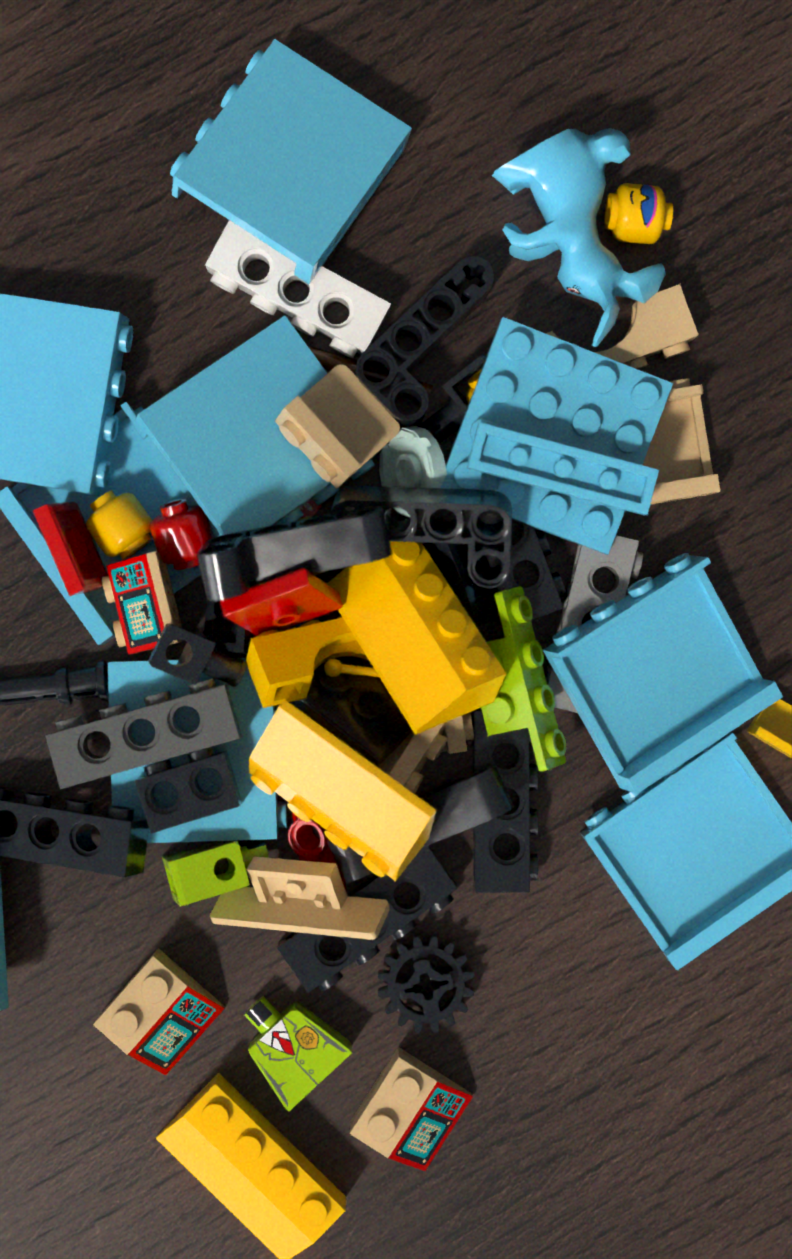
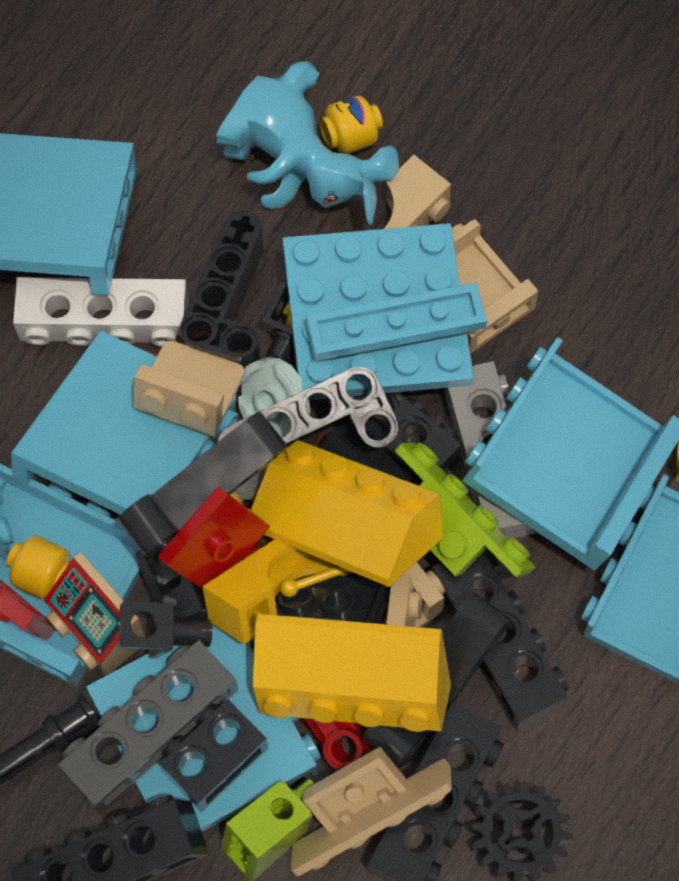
camera: 25 degrees left, 20 degrees down
(180, 533) = (101, 542): red head -> none

